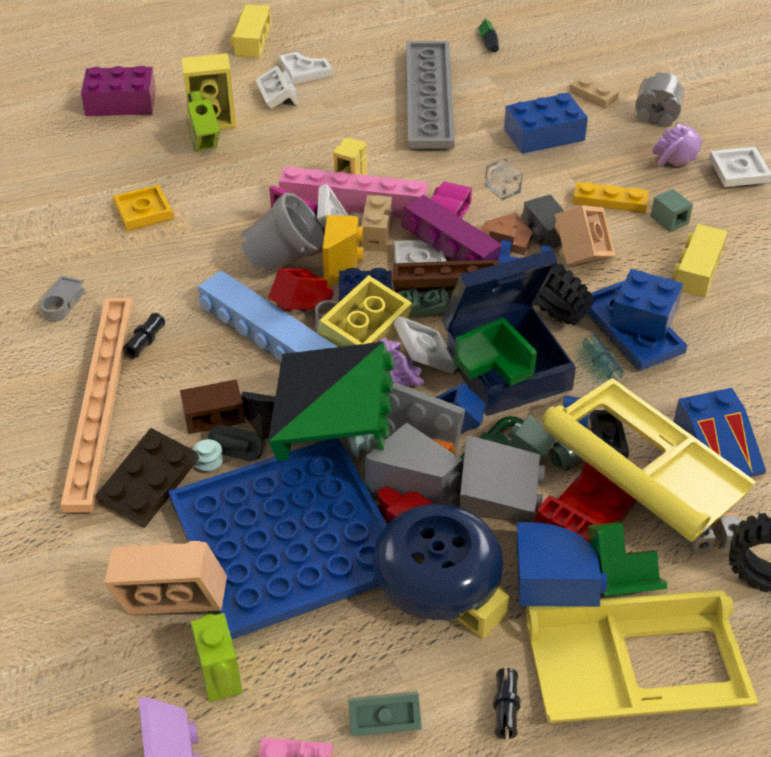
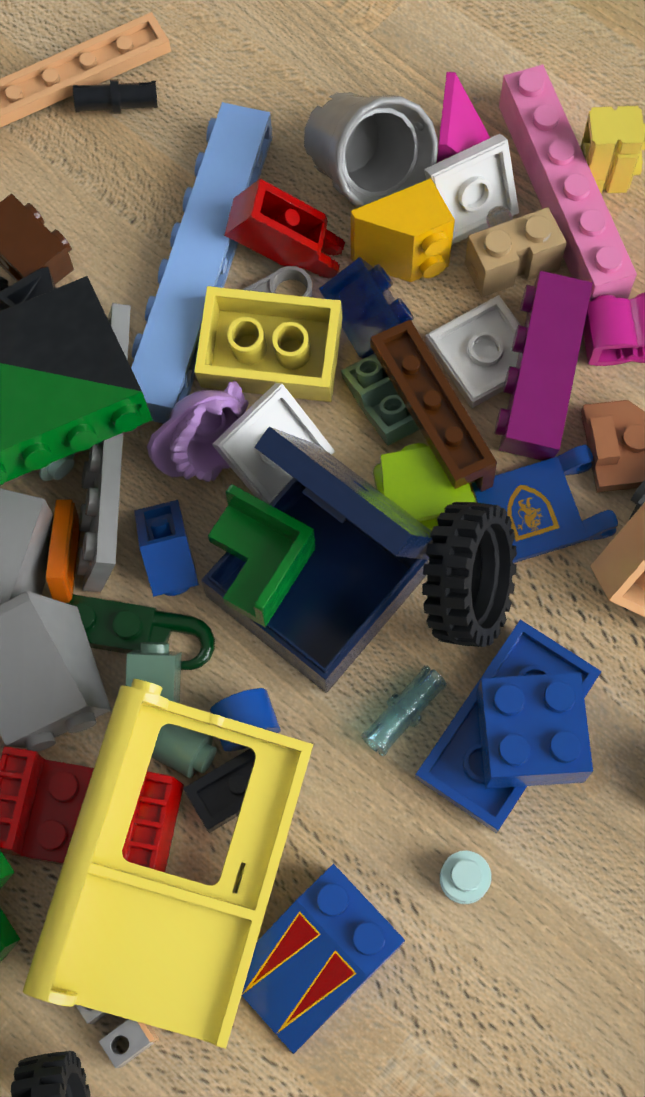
camera: 65 degrees right, 25 degrees up
(704, 368) = (465, 877): none -> light aqua wheel

